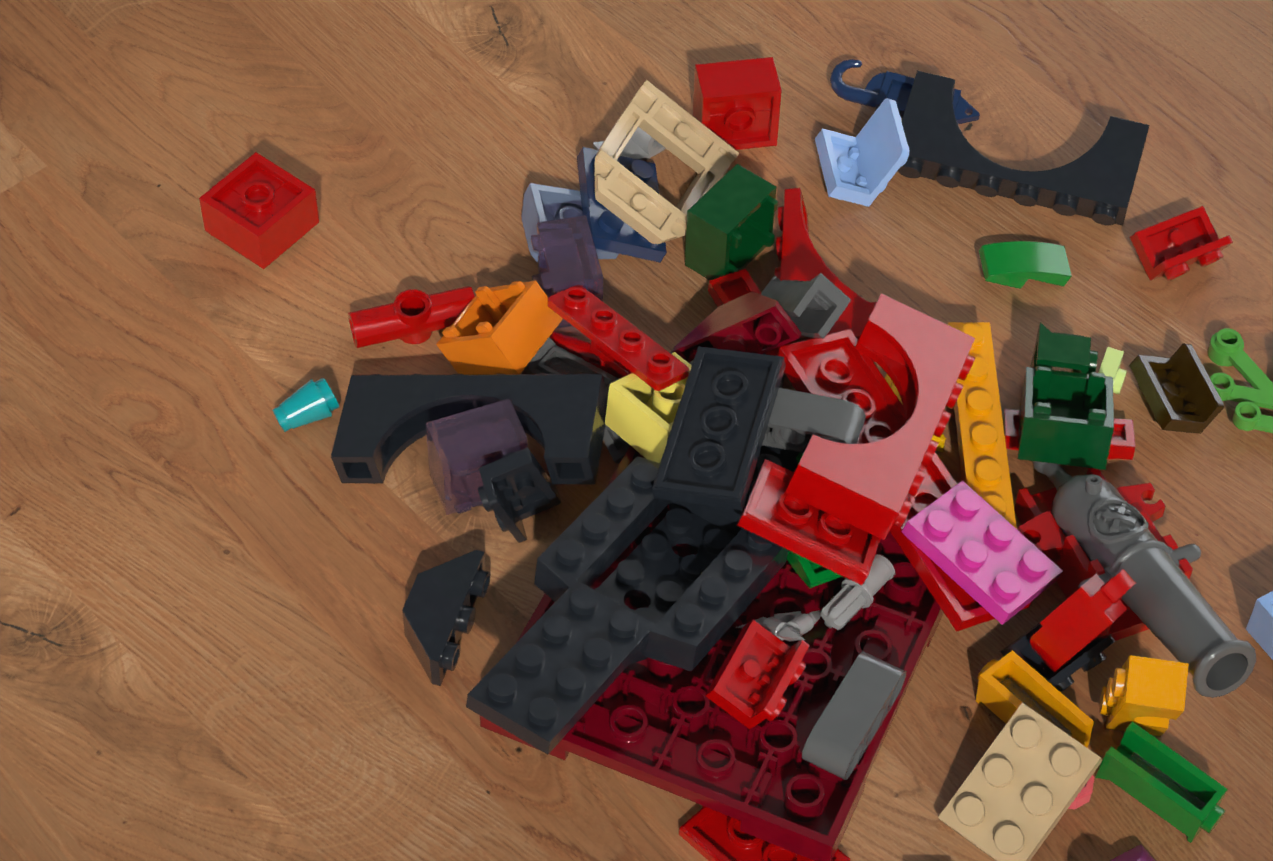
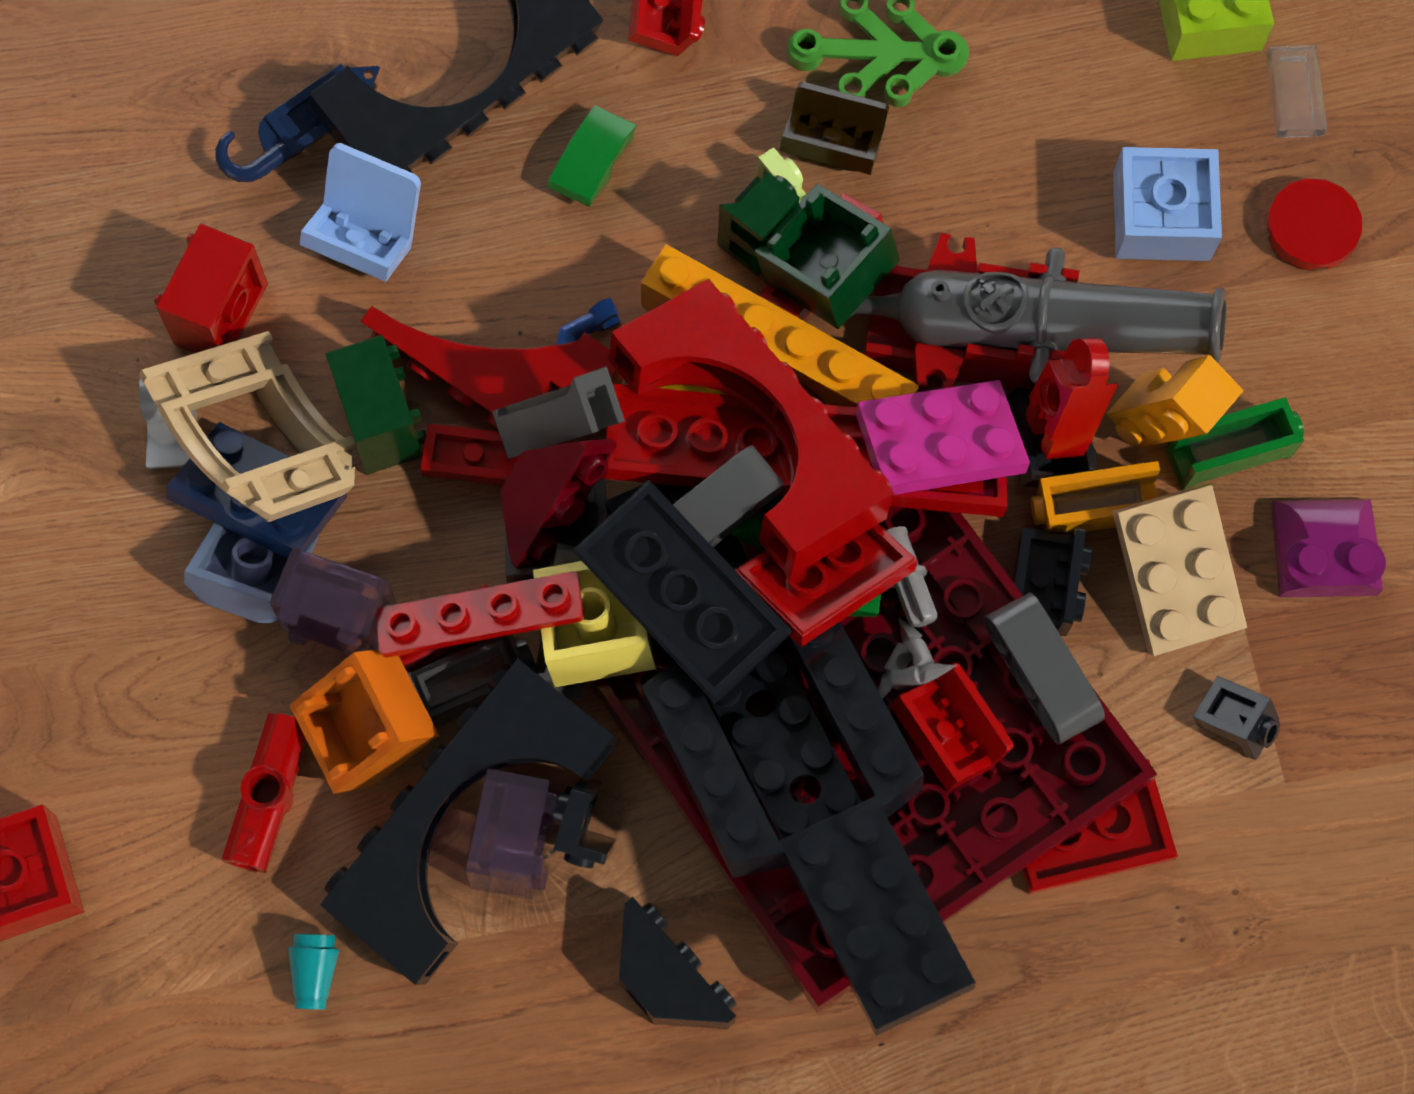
camera: 60 degrees left, 20 degrees up
(942, 709) = (1051, 570): none -> black bracket

